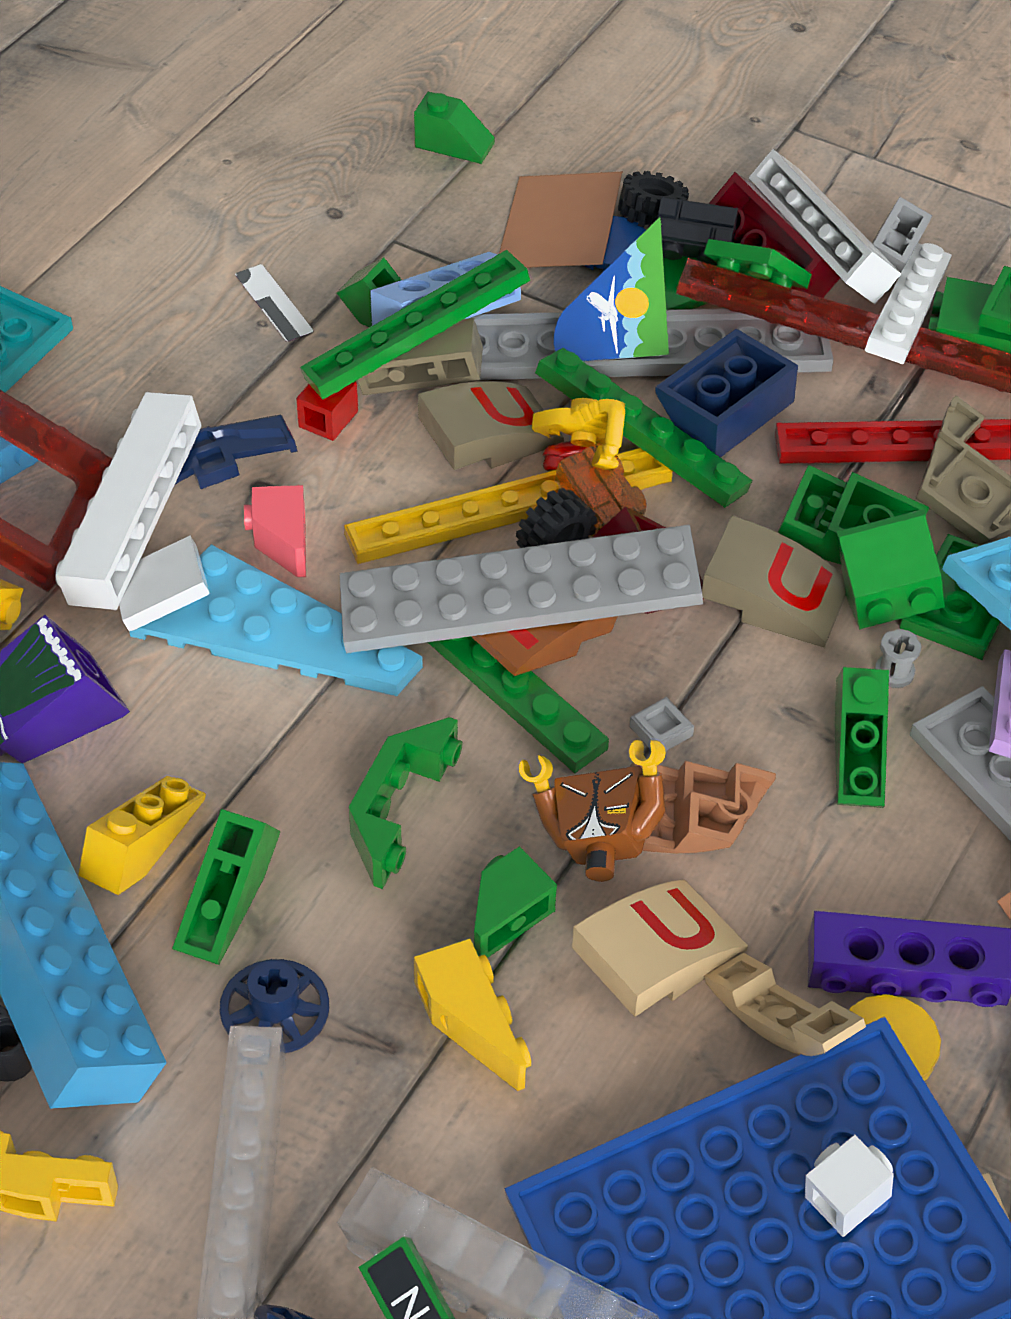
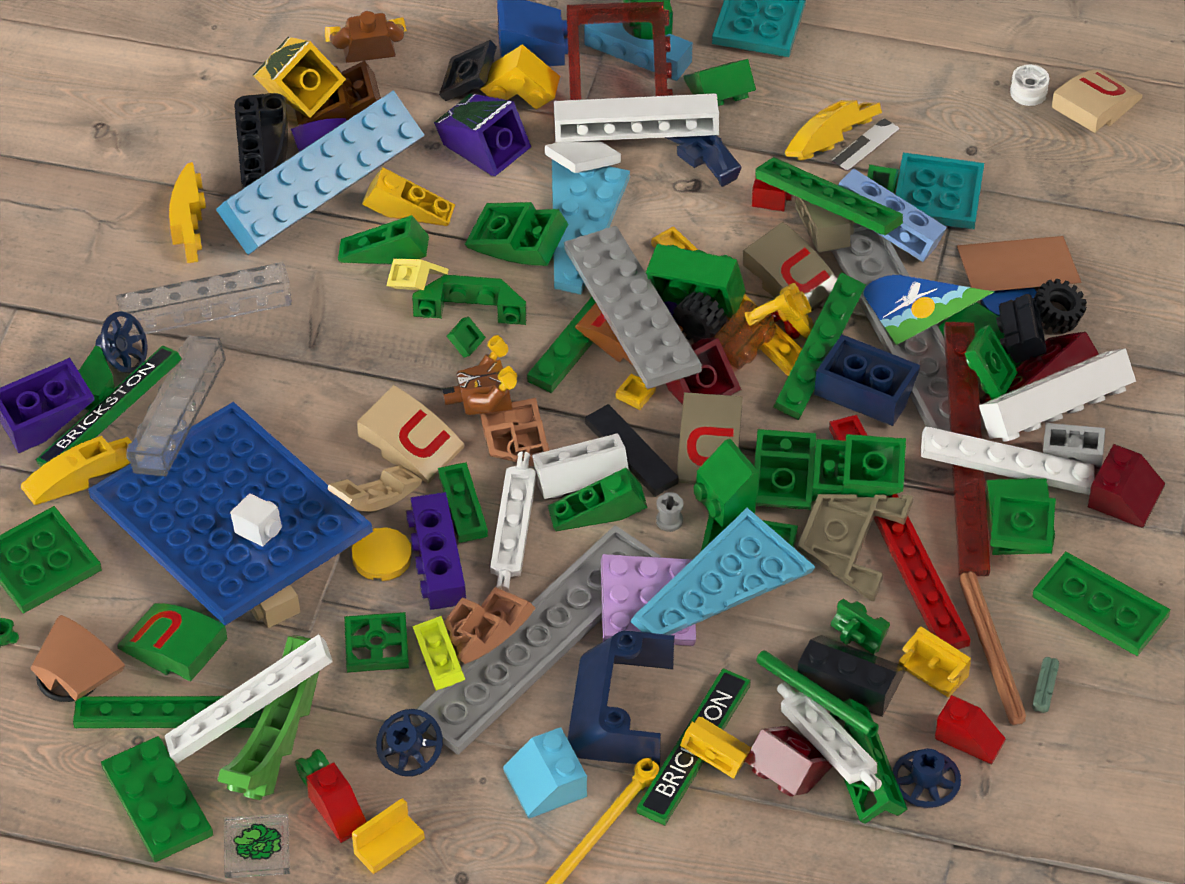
camera: 75 degrees right, 0 degrees up
(93, 397) = (725, 80): none -> green slope
(246, 316) = (828, 127): none -> yellow slope
(258, 128) = (1029, 85): none -> white wheel
(274, 998) = (320, 285): dark blue wheel -> none
(279, 525) = (656, 197): coral slope -> none
(279, 704) = (517, 233): none -> green slope
(318, 84) = (1094, 99): none -> tan slope
(326, 852) = (412, 273): none -> light yellow panel
(406, 238) = (942, 188): none -> teal plate
(451, 129) = (1082, 182): green slope -> none
(464, 1007) = (339, 362): yellow slope -> none
(473, 820) = (466, 336): none -> green plate
(496, 499) = (682, 271): none -> green brick
(511, 900) = (413, 364): green slope -> none
(644, 647) = (634, 392): none -> yellow tile
(662, 723) = (574, 411): light grey tile -> none
(756, 678) = (640, 456): none -> black tile
(792, 902) = (463, 502): none -> green plate
(797, 733) = (578, 465): none -> white brick
(876, 846) = (513, 521): none -> white plate
(890, 432) = (859, 466): none -> green slope
(960, 230) = (1126, 487): none -> dark red slope

